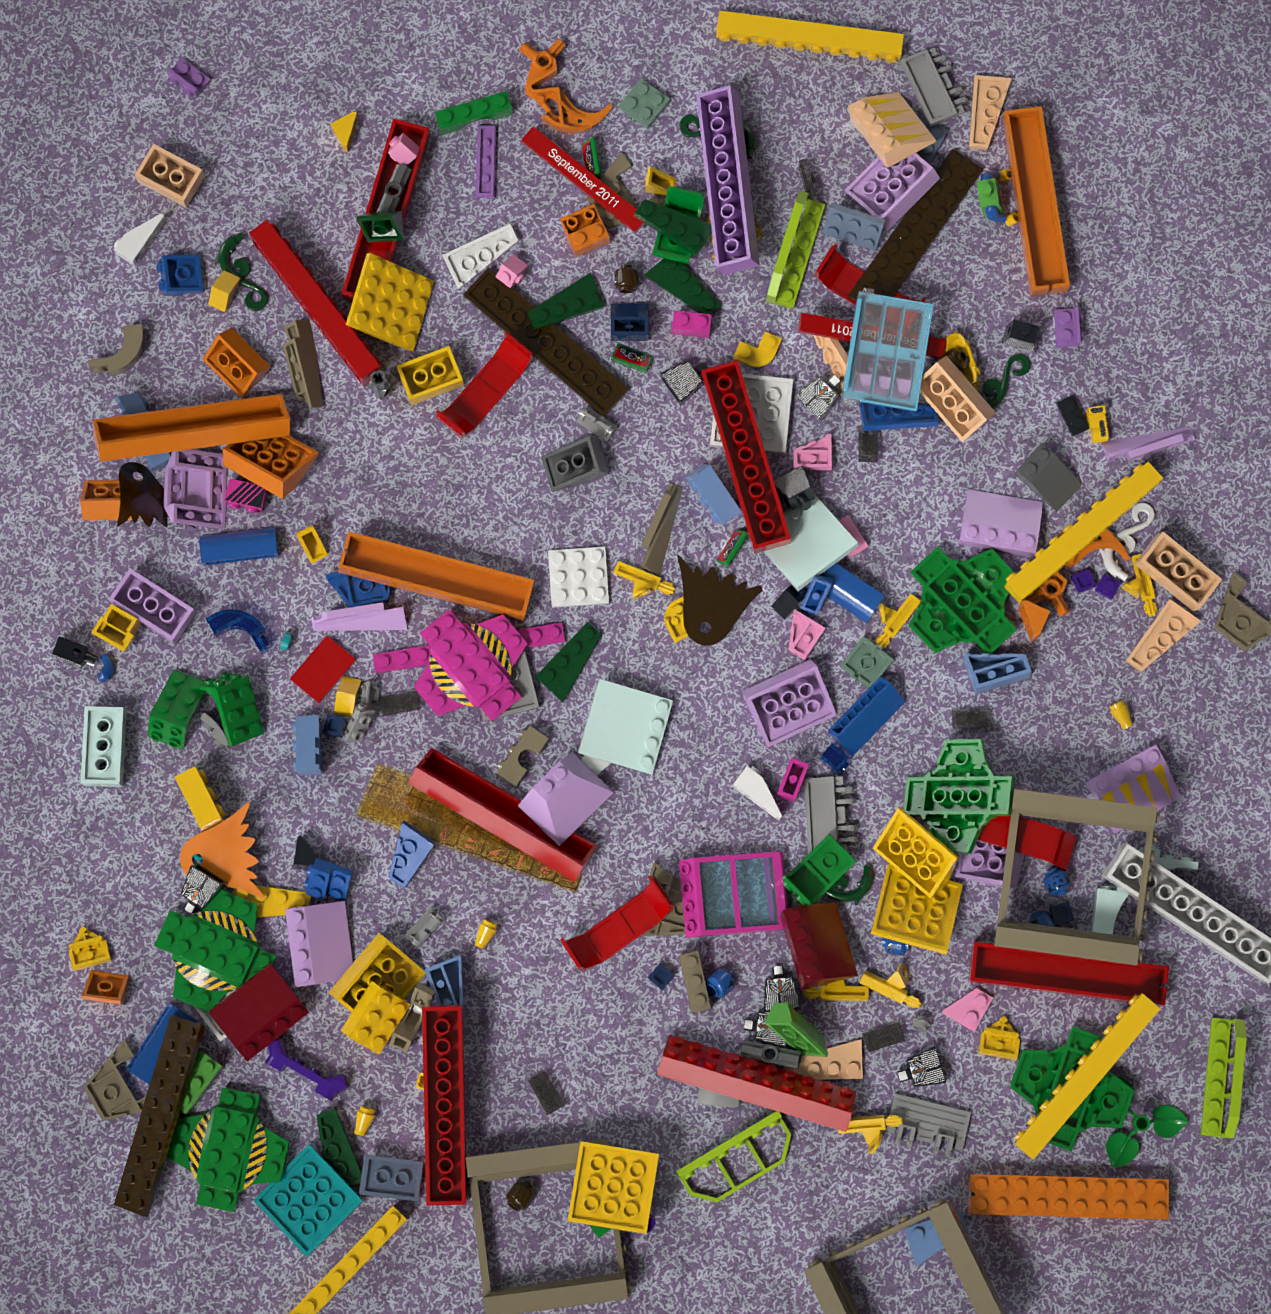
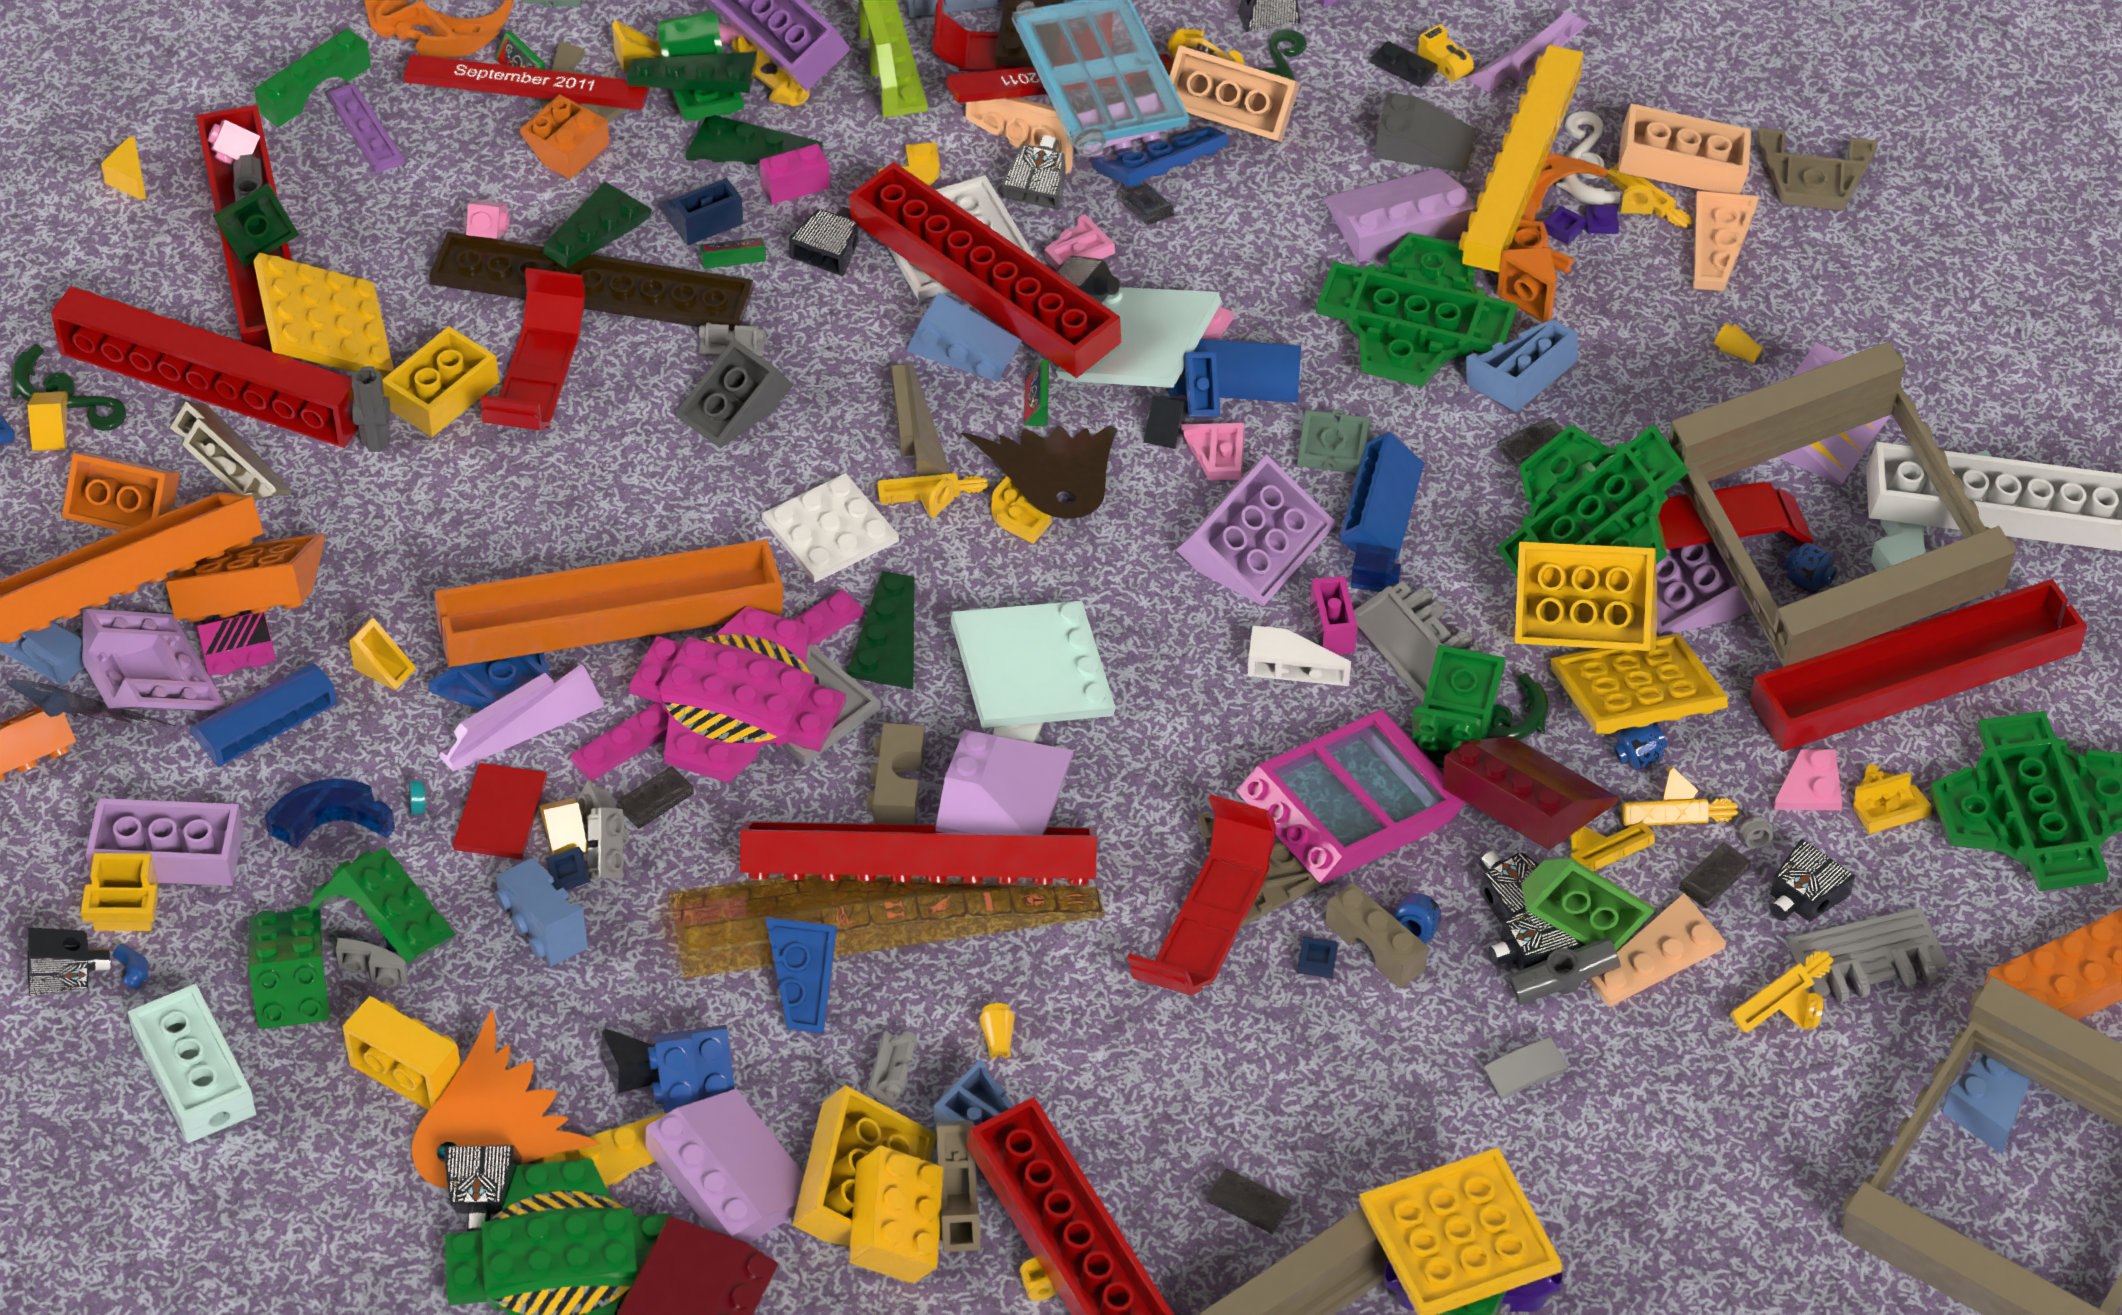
camera: 30 degrees left, 30 degrees down
(476, 255) = (420, 230): white wing -> none
(626, 279) = (663, 165): dark brown head -> none
(722, 1150) = (1588, 1129): lime plate -> none
(757, 1083) = (1572, 1010): red brick -> none
(895, 619) = (1335, 377): yellow piece -> none
(1086, 1076) = (2052, 761): yellow brick -> none

